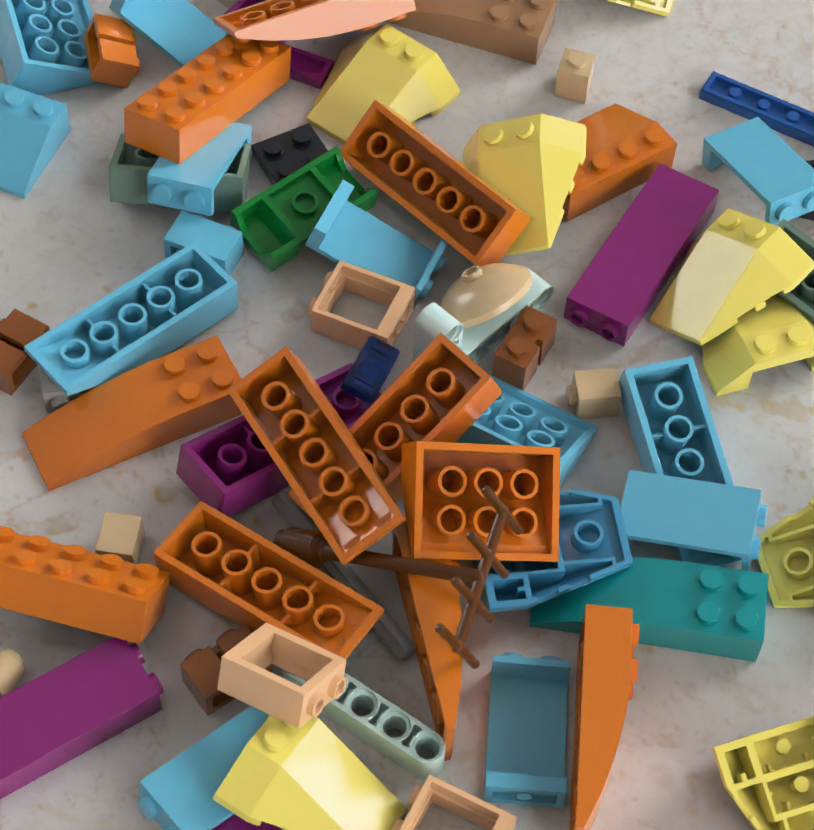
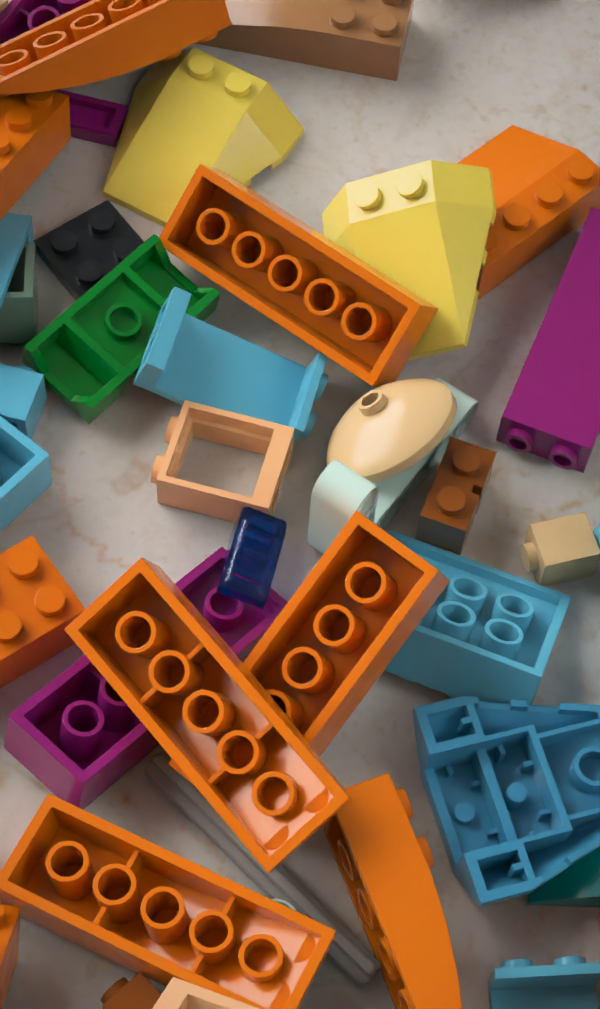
camera: 10 degrees left, 5 degrees up
(315, 550) = (216, 847): reddish brown piece -> none
(446, 500) = (447, 750): orange slope -> none
(574, 75) = (454, 92): tan brick -> none

